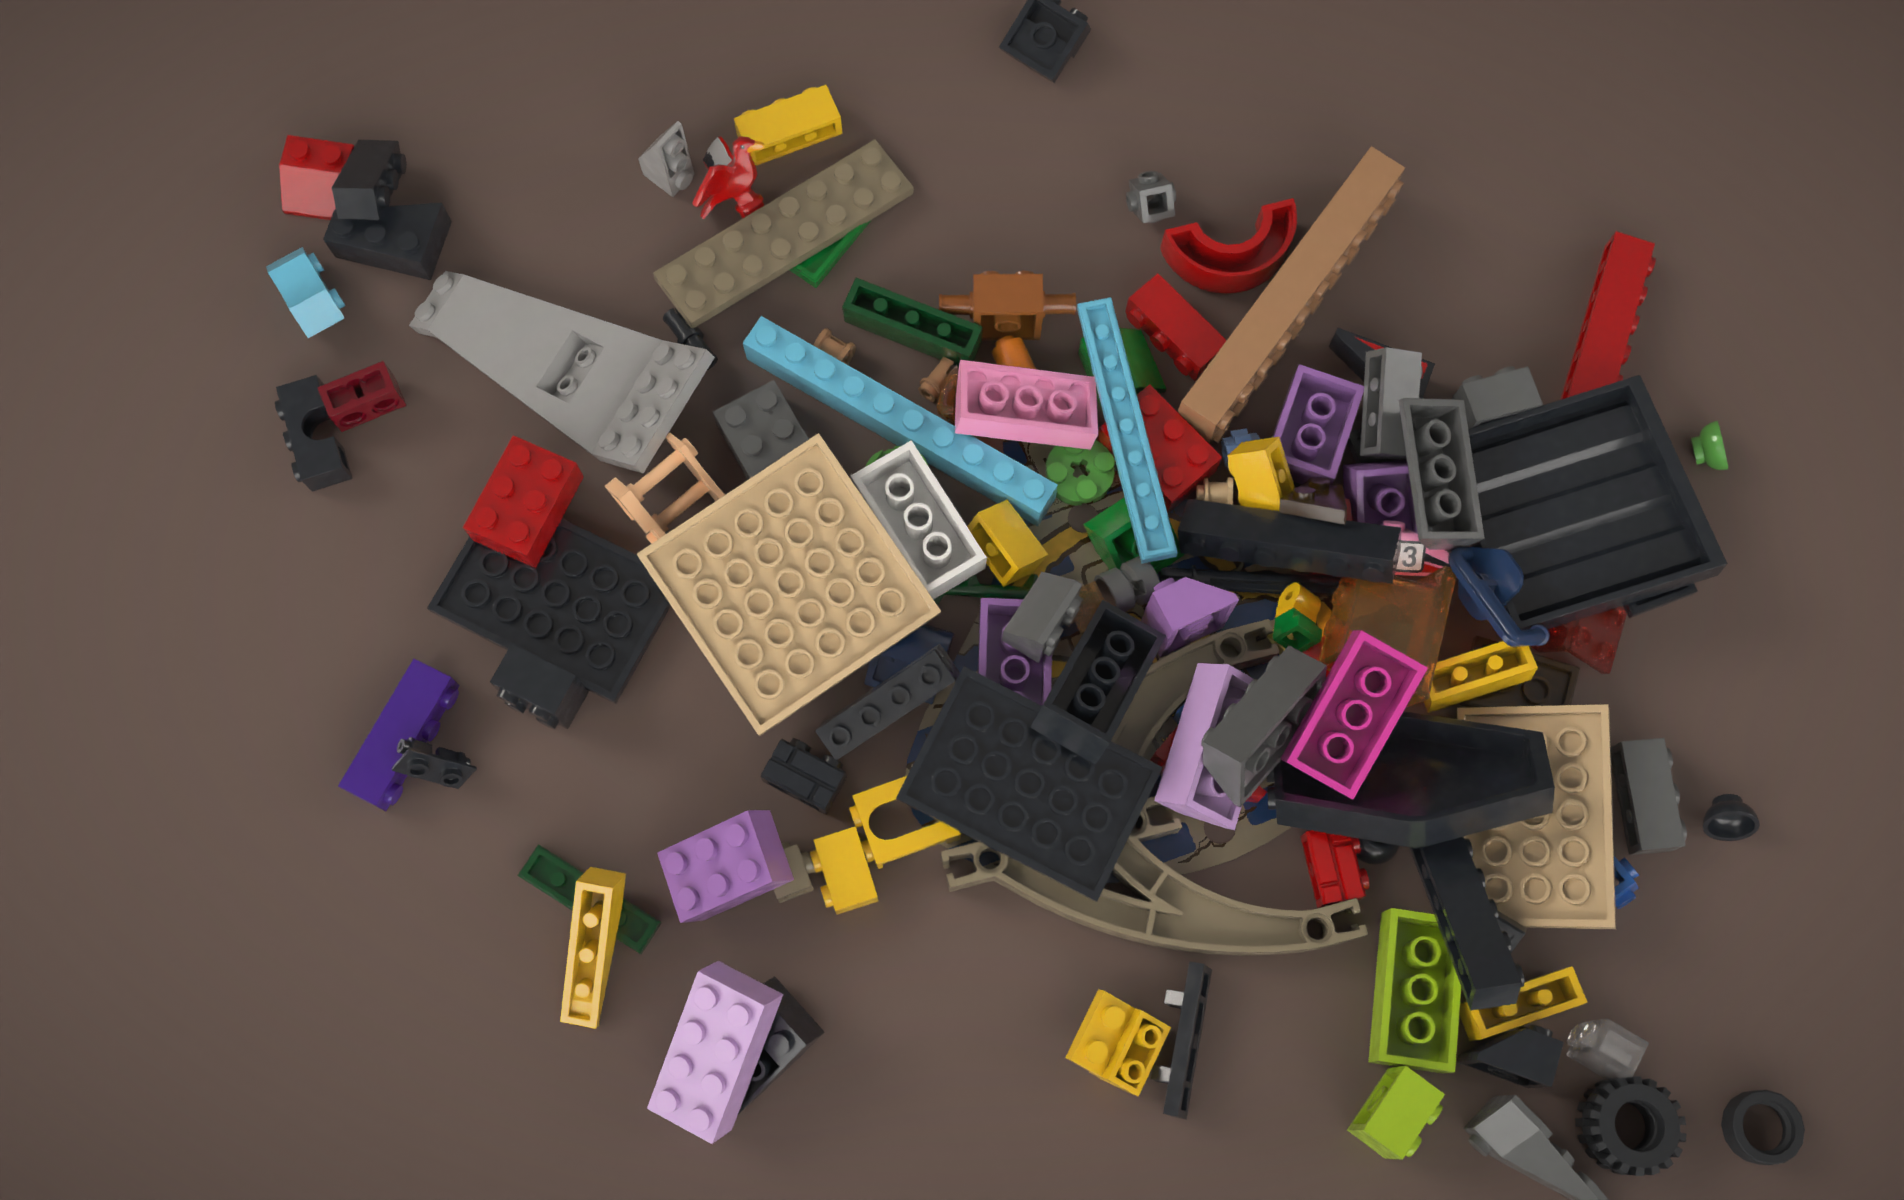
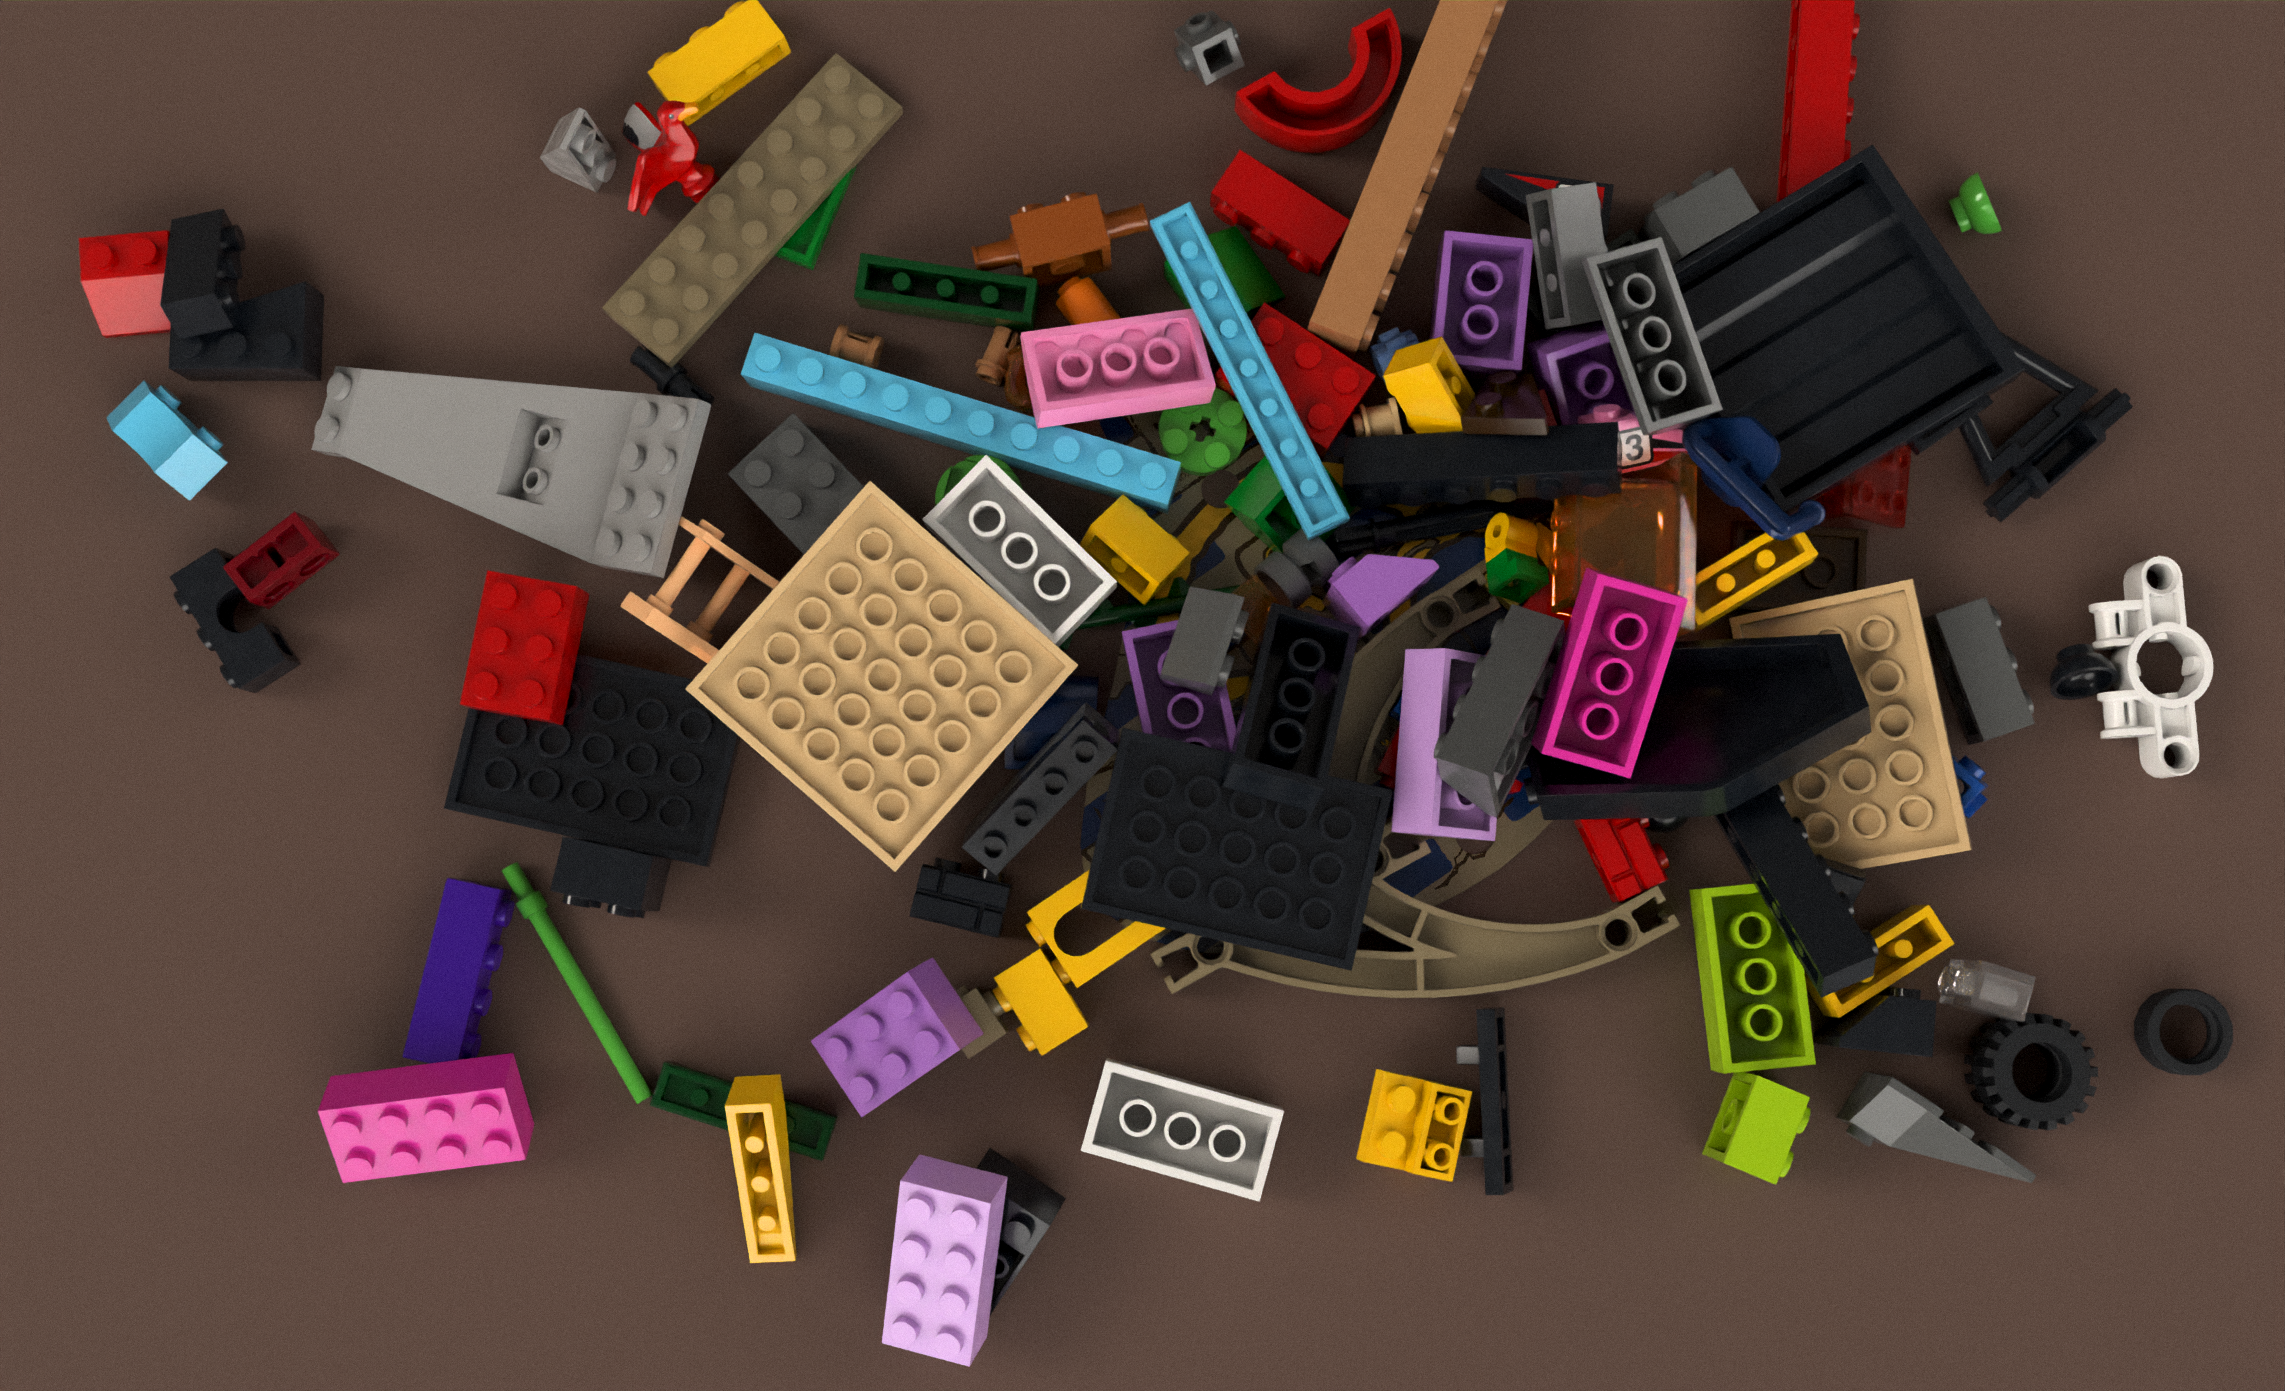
camera: 10 degrees left, 10 degrees up
(342, 837) = (427, 1118): none -> dark pink brick
(444, 768) = (528, 999): black hinge -> none
(472, 701) = (532, 907): none -> bright green bar
(931, 997) = (1182, 1129): none -> white brick
(1734, 636) = (2049, 442): none -> black piece
(1764, 854) = (2132, 709): none -> white piece

